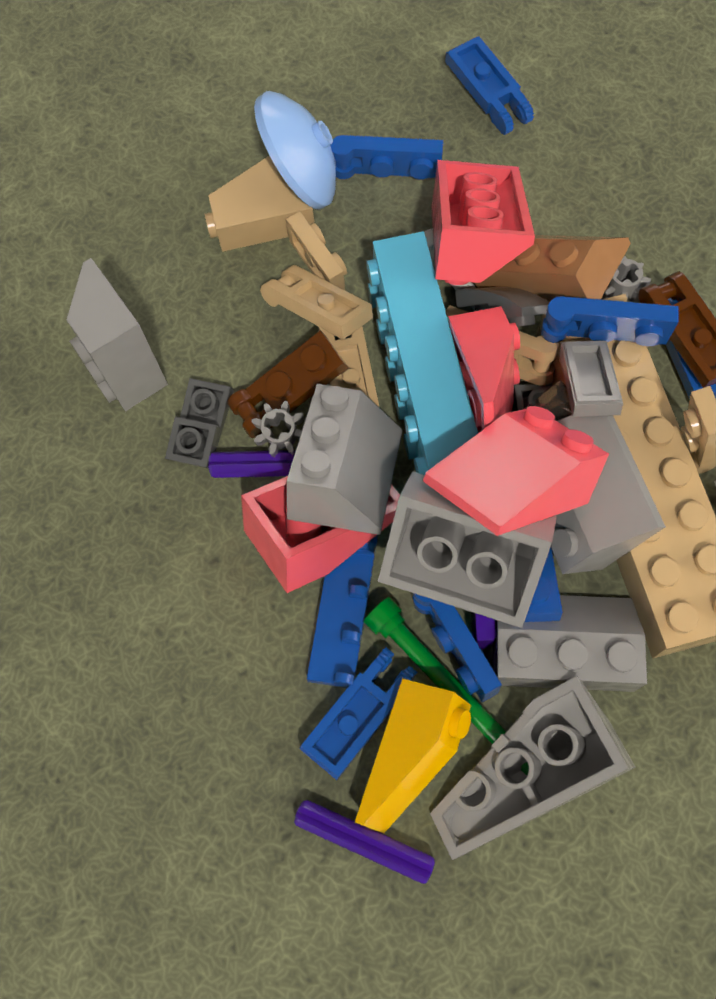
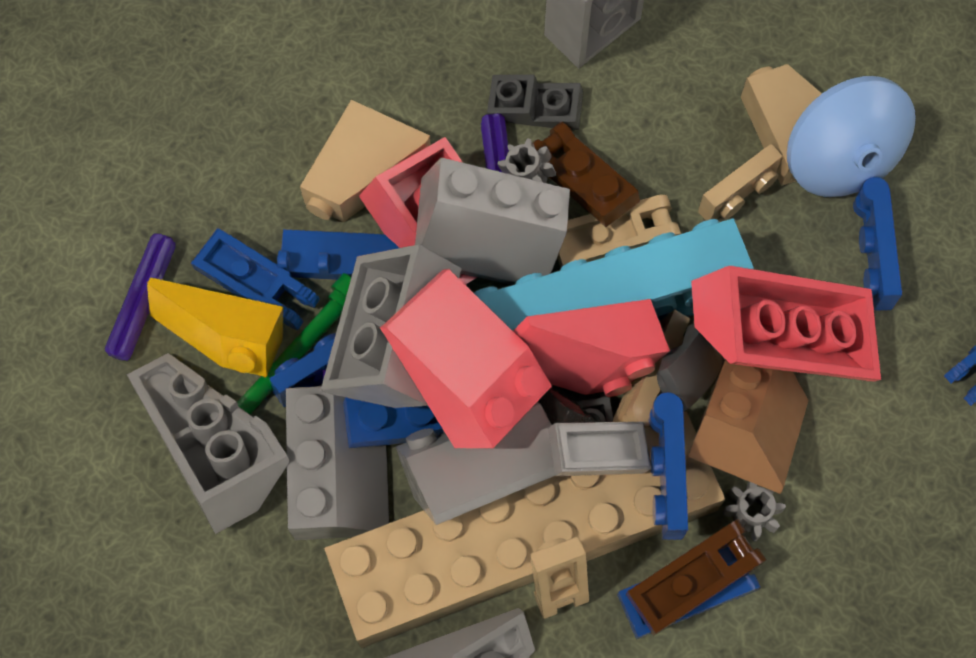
camera: 80 degrees right, 0 degrees up
(242, 593) = (354, 154): none -> tan slope
(318, 301) = (677, 188): tan plate -> none

